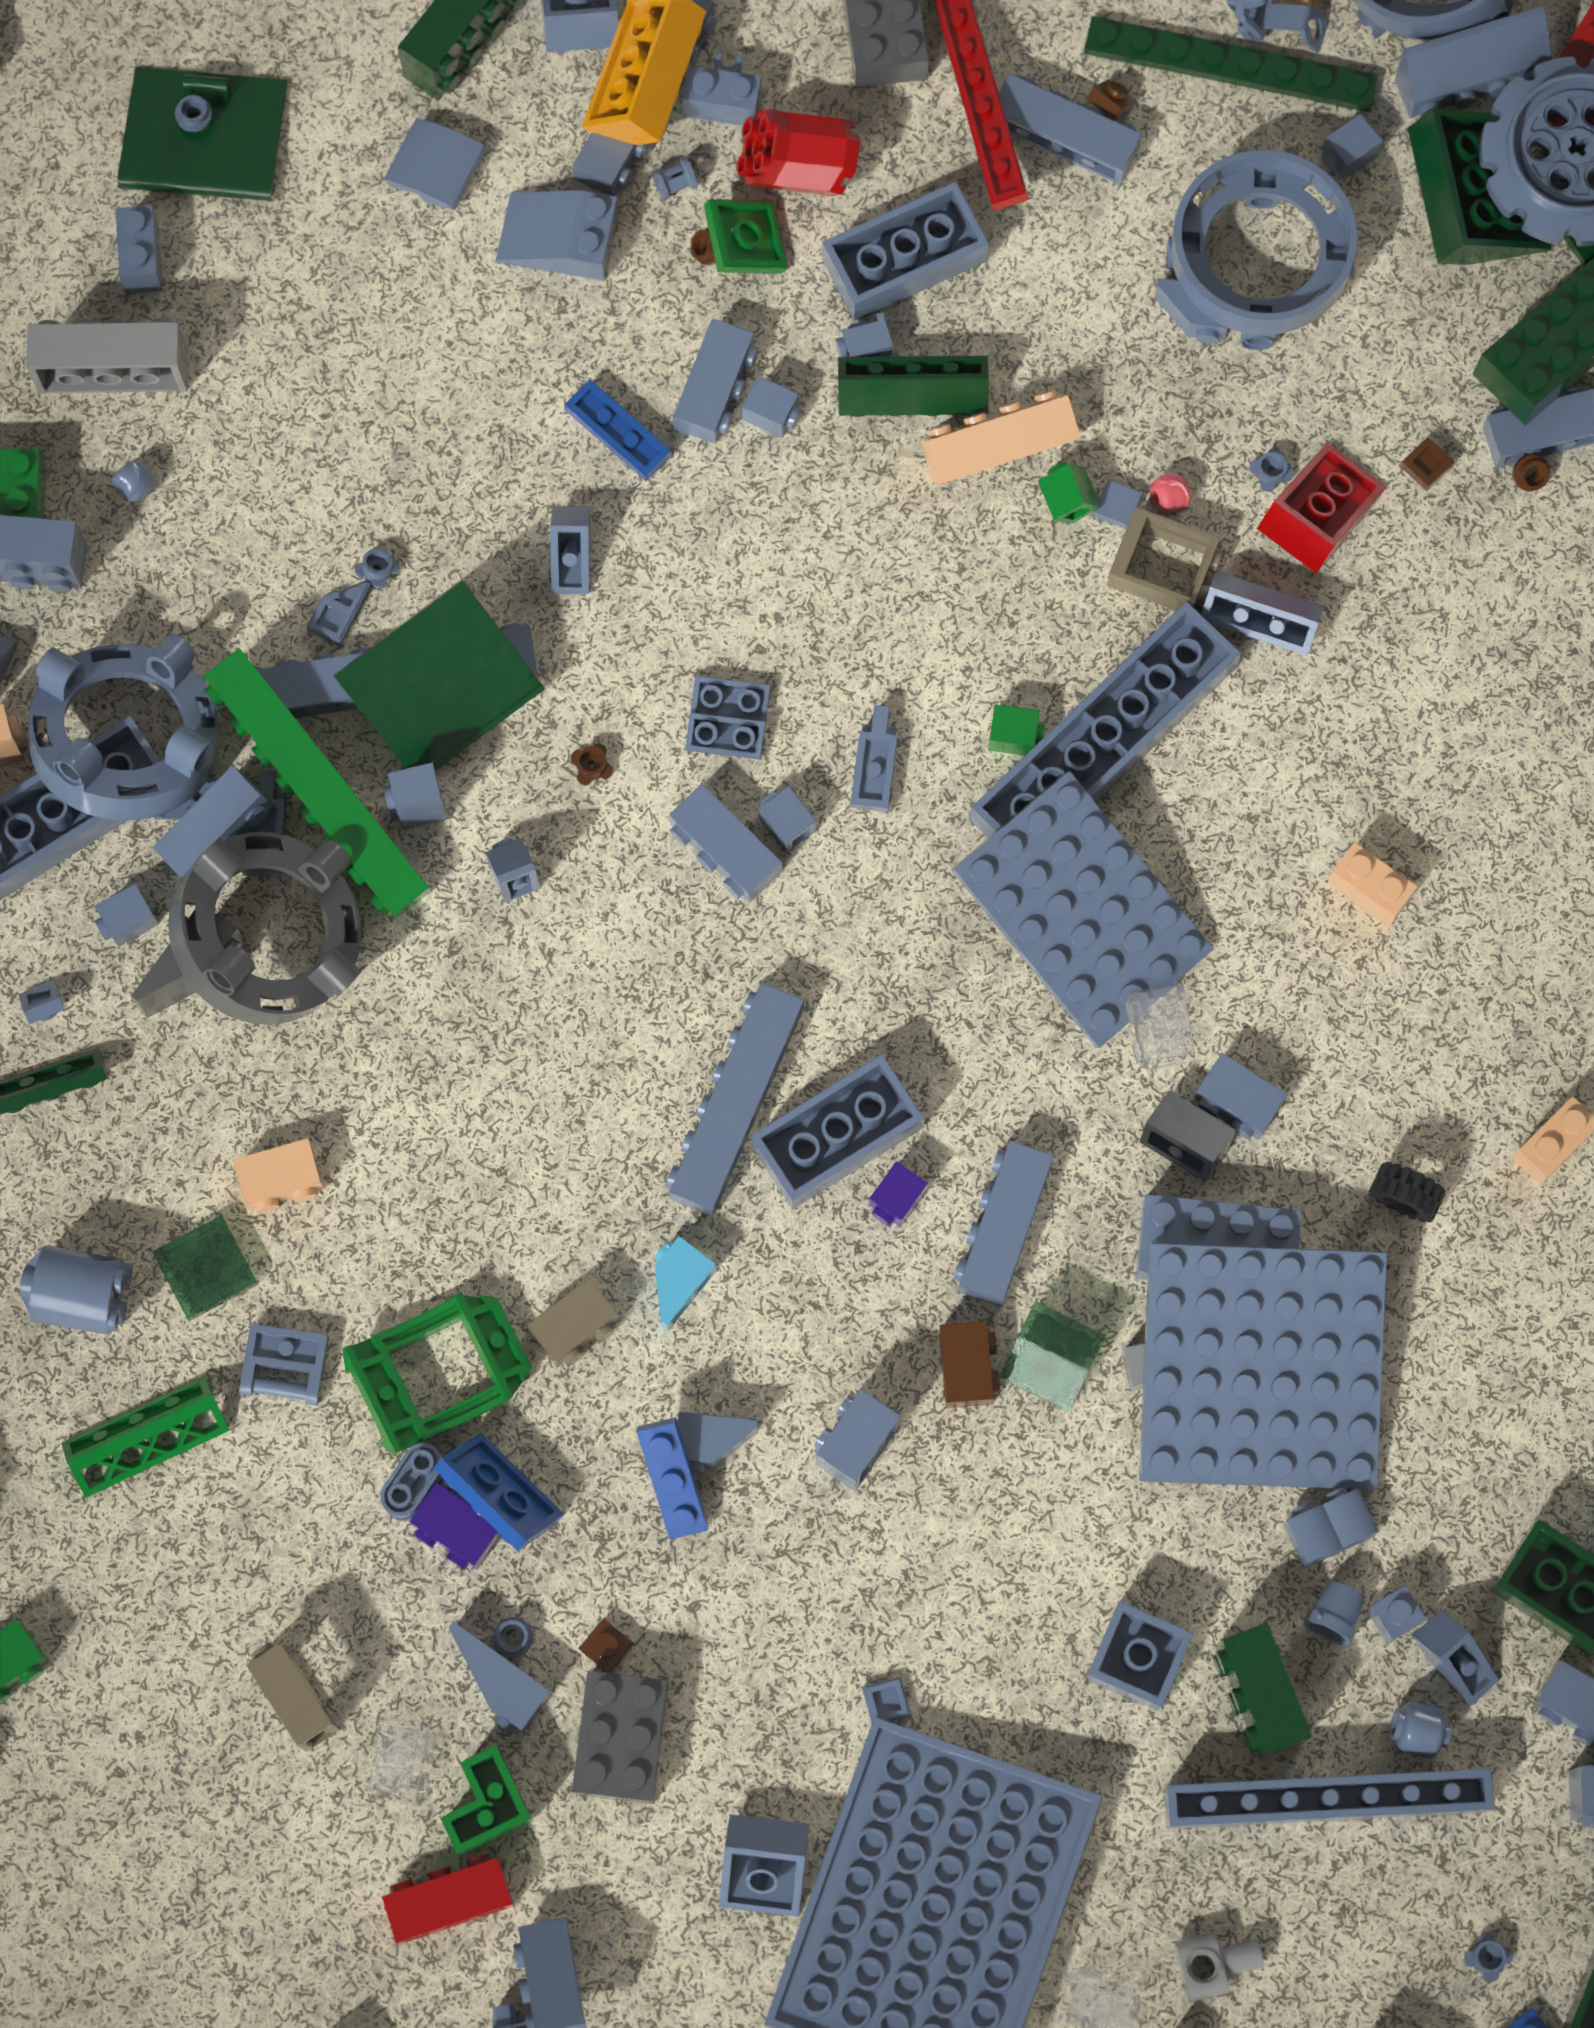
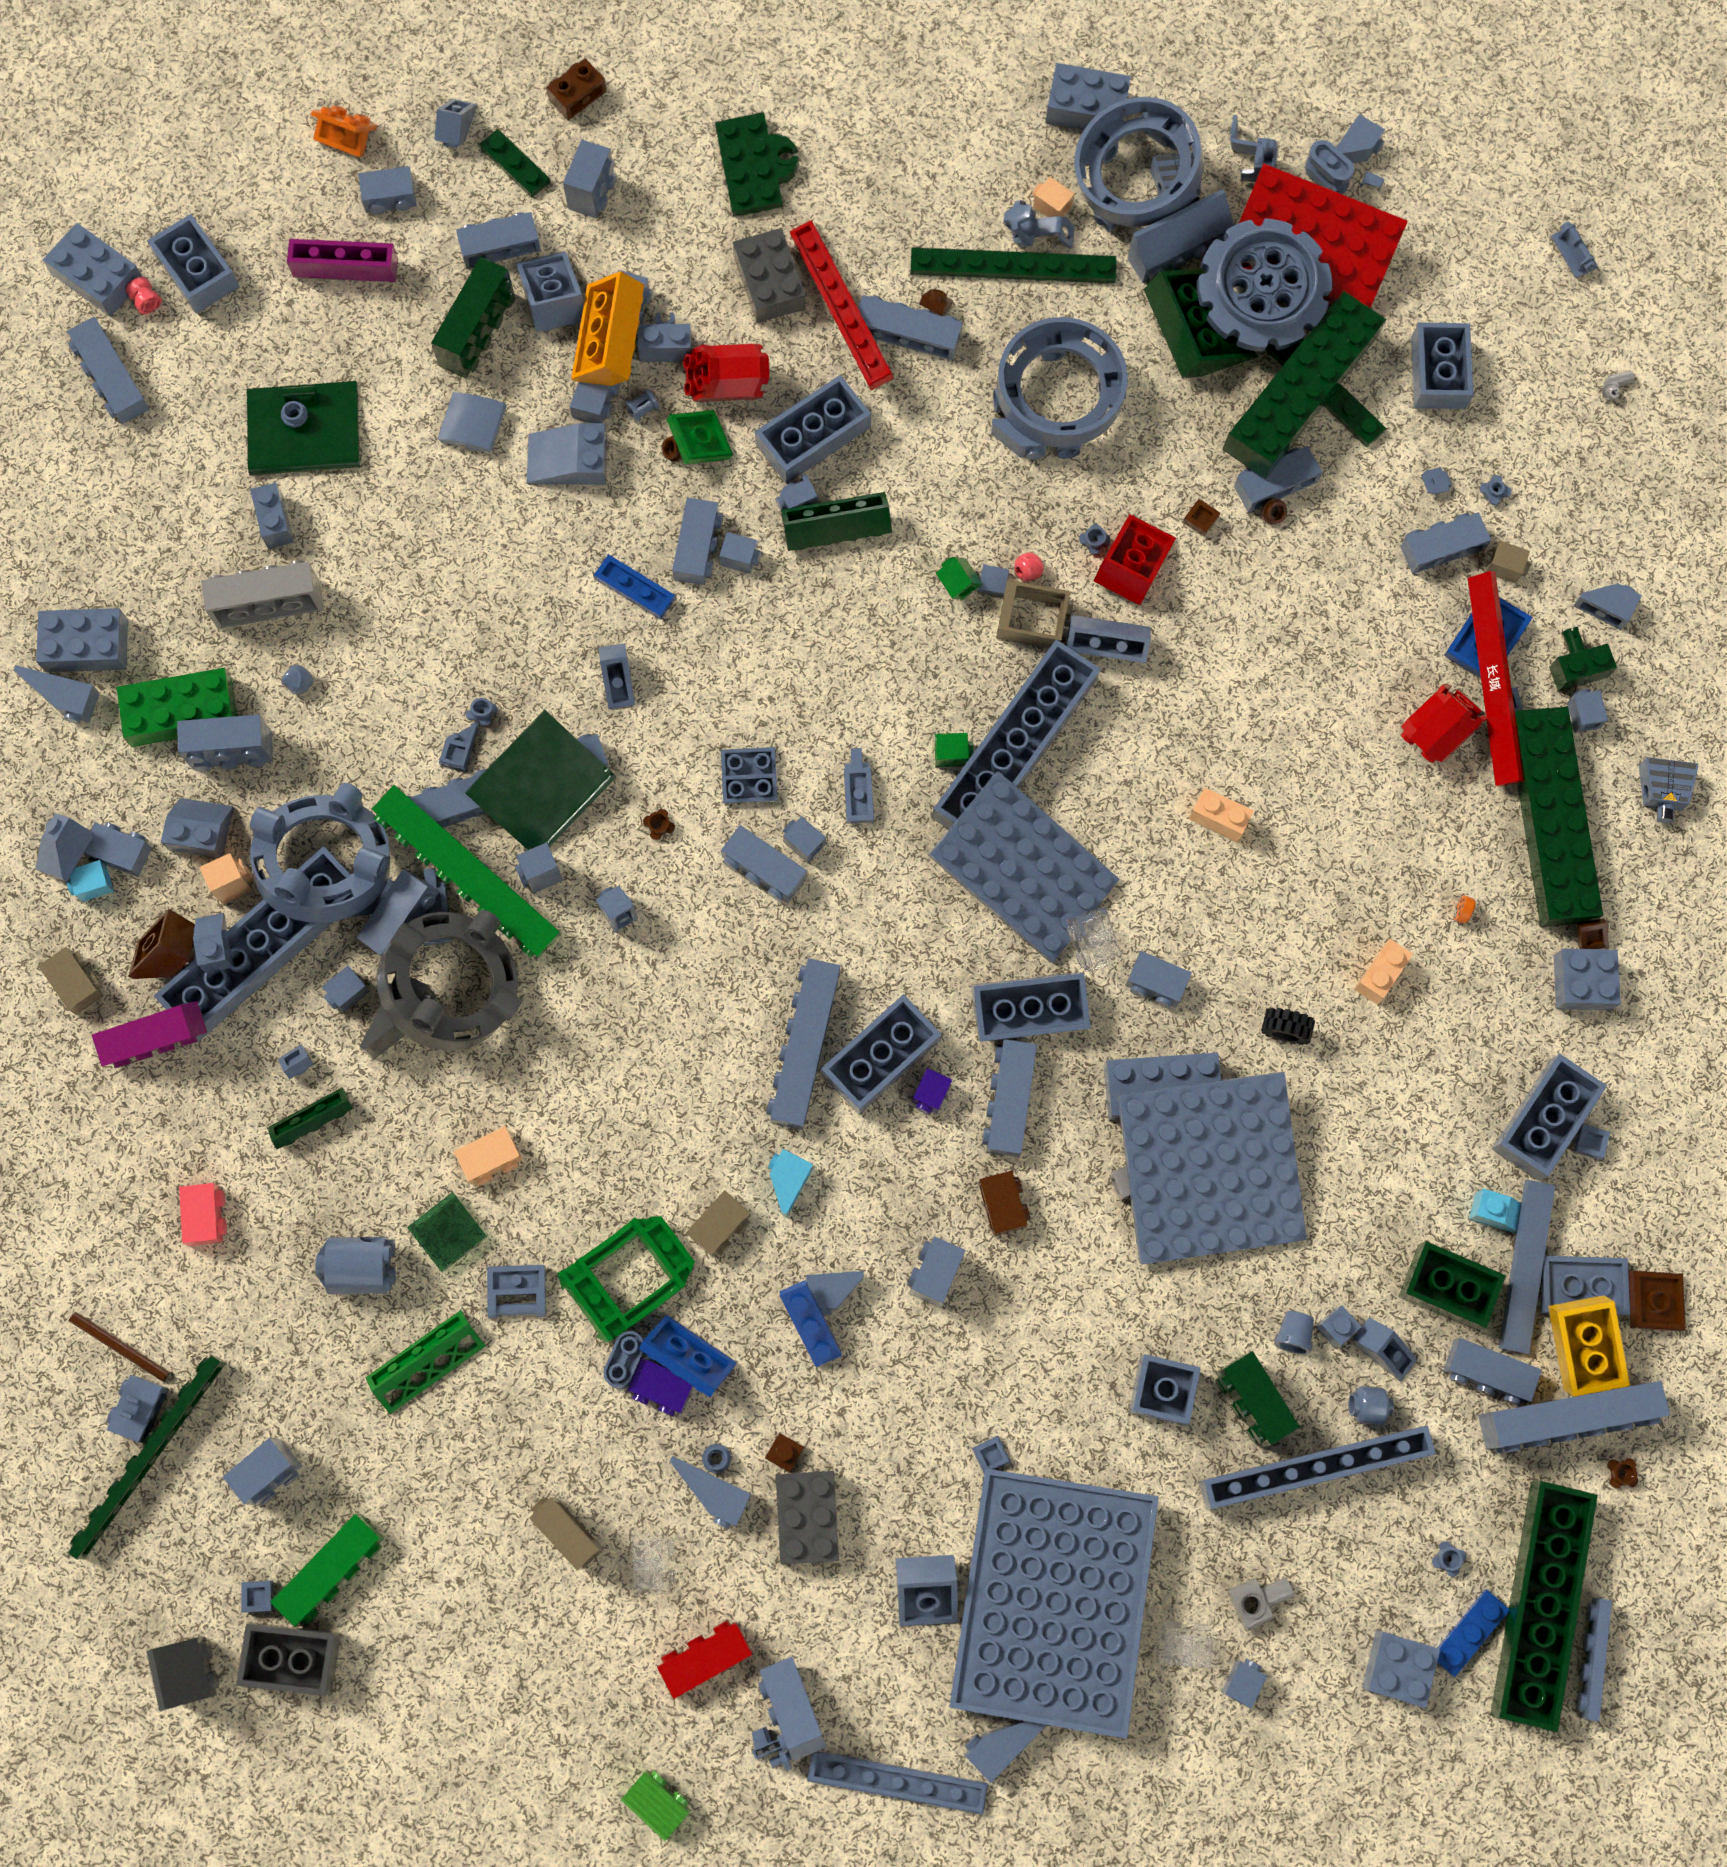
camera: 15 degrees left, 0 degrees up
(497, 1807) = (728, 1585): green brick -> none
(1000, 437) = (904, 547): light nougat brick -> none
(1052, 1356) = (1062, 1186): clear green slope -> none
(1055, 1102) = (1030, 1006): none -> sand blue slope
(1187, 1135) = (1127, 1013): brick -> none
(1330, 1527) = (1279, 1272): sand blue brick -> none
(1351, 147) = (1107, 308): sand blue brick -> none

